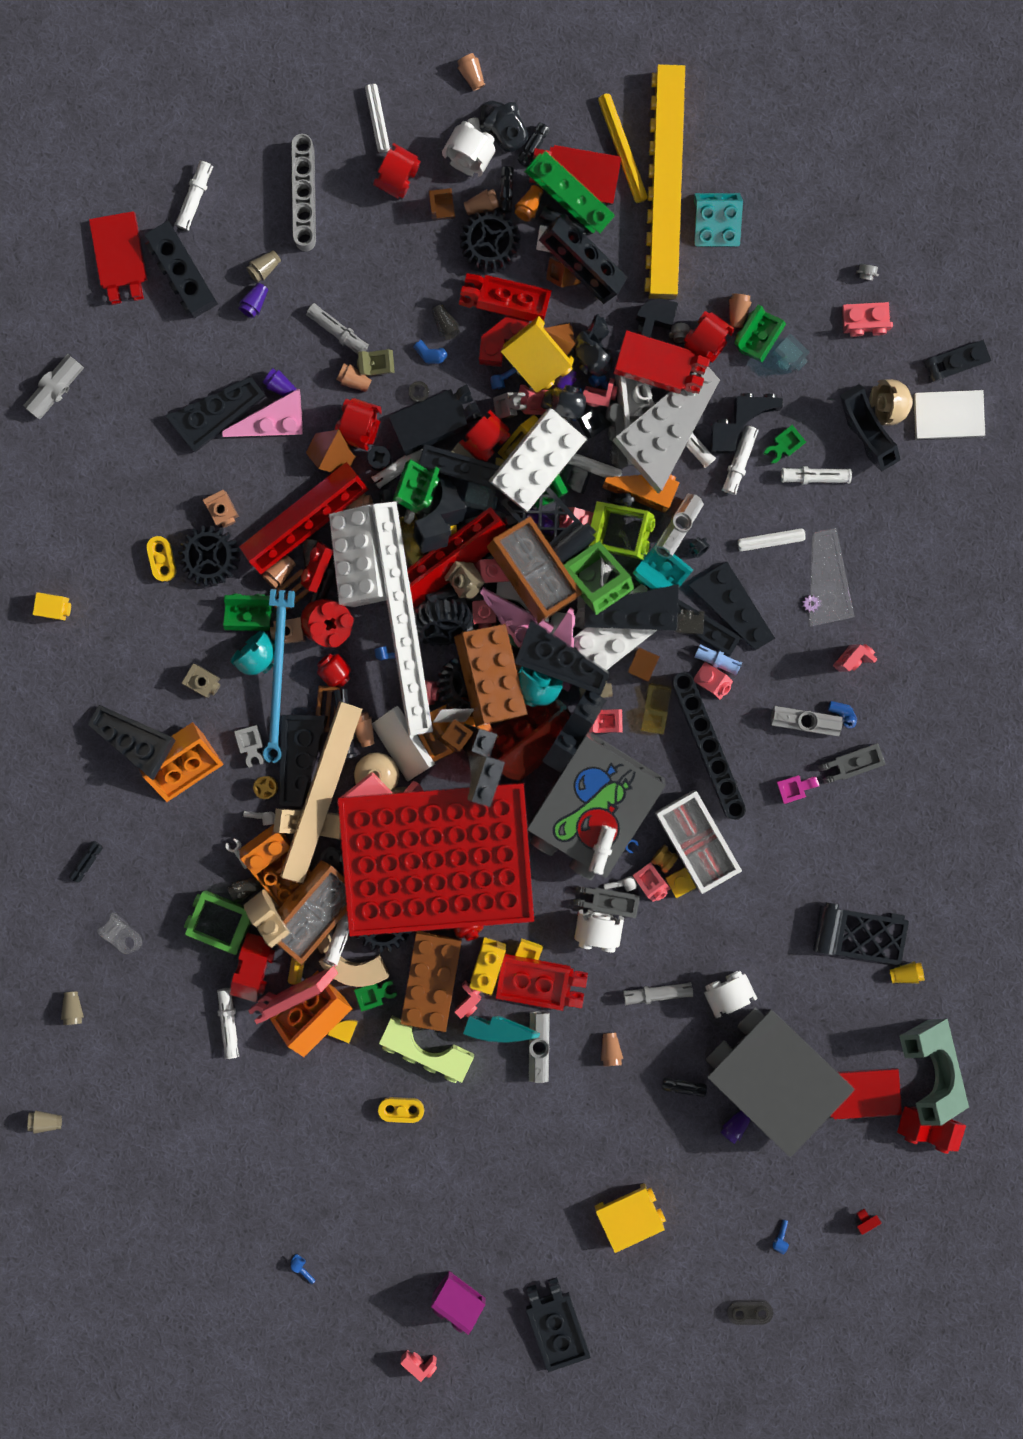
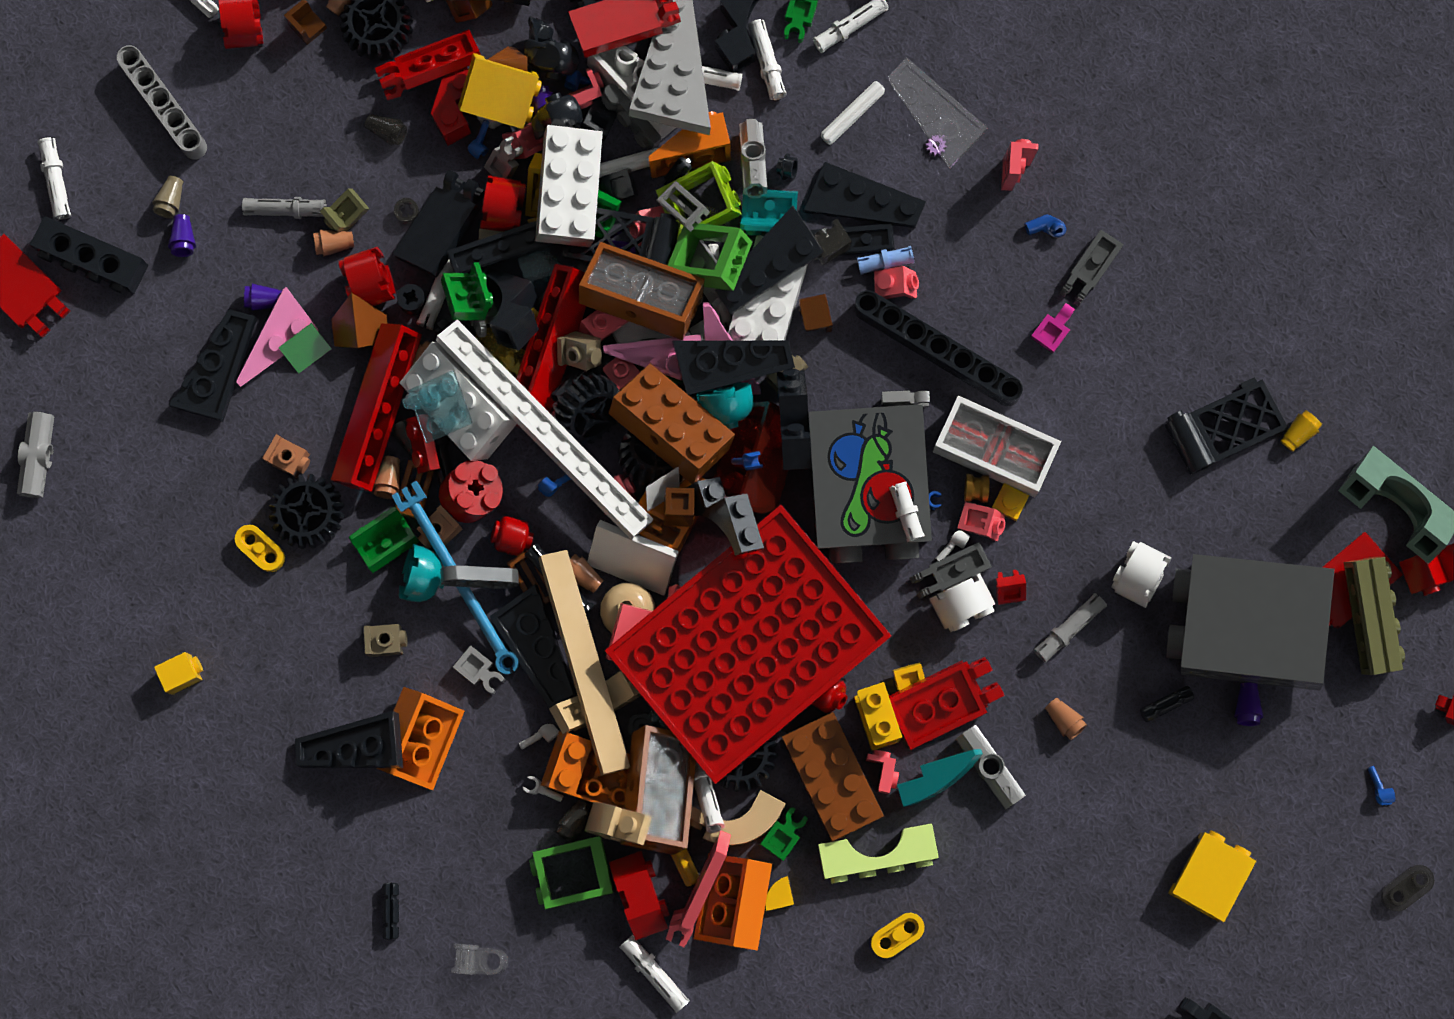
camera: 35 degrees left, 10 degrees down
(261, 787) = (520, 699): pearl gold wheel -> none
(284, 440) = (304, 348): none -> green sticker
(291, 686) = (479, 577): none -> dark grey beam
(342, 553) = (439, 406): none -> clear light blue hinge
(430, 356) = (394, 169): blue arm -> none
(523, 739) = (748, 460): none -> blue hand
(607, 543) = (693, 216): none -> light grey tile
(608, 722) = (822, 393): coral bracket -> none
(637, 940) = (1010, 588): none -> red tile
(656, 708) = (860, 350): clear yellow slope -> none
(656, 763) = (902, 398): none -> light grey plate
(820, 722) = (1029, 249): light grey piece -> none
(861, 1129) = (1374, 616): none -> olive brick

